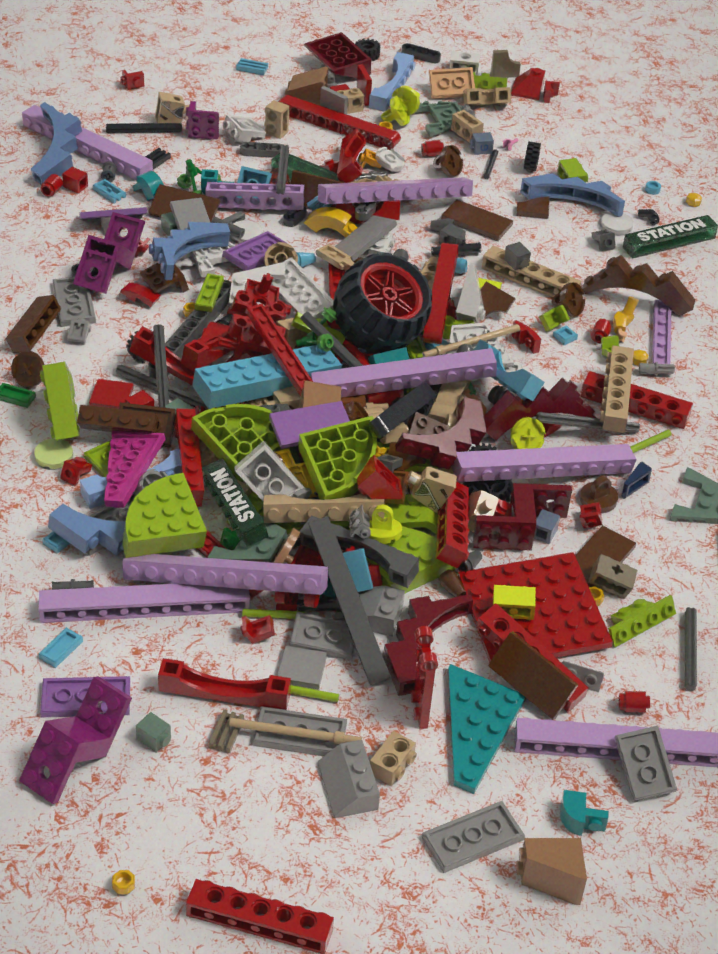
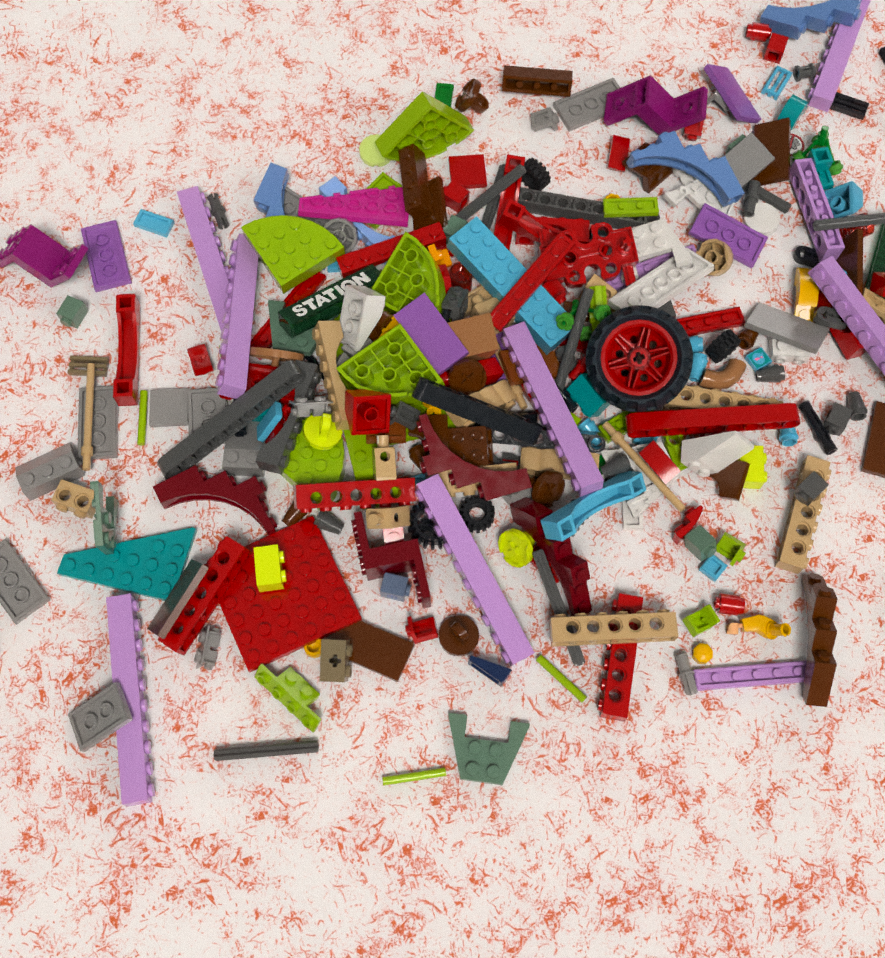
camera: 80 degrees right, 25 degrees up
(73, 469) = (359, 170): red bracket -> none
(305, 258) = (734, 280): medium azure cone -> none
(335, 257) = (742, 309): tan hinge -> none
(425, 675) = (131, 500): red hinge -> none
(446, 717) = (105, 521): none -> sand green wing
(472, 326) = (659, 462): none -> red slope
(547, 331) = (700, 543): none -> sand green brick
(570, 298) = (766, 562): reddish brown tile -> none
(578, 817) = (37, 663): teal brick -> none
(634, 701) = (181, 700): red brick -> none

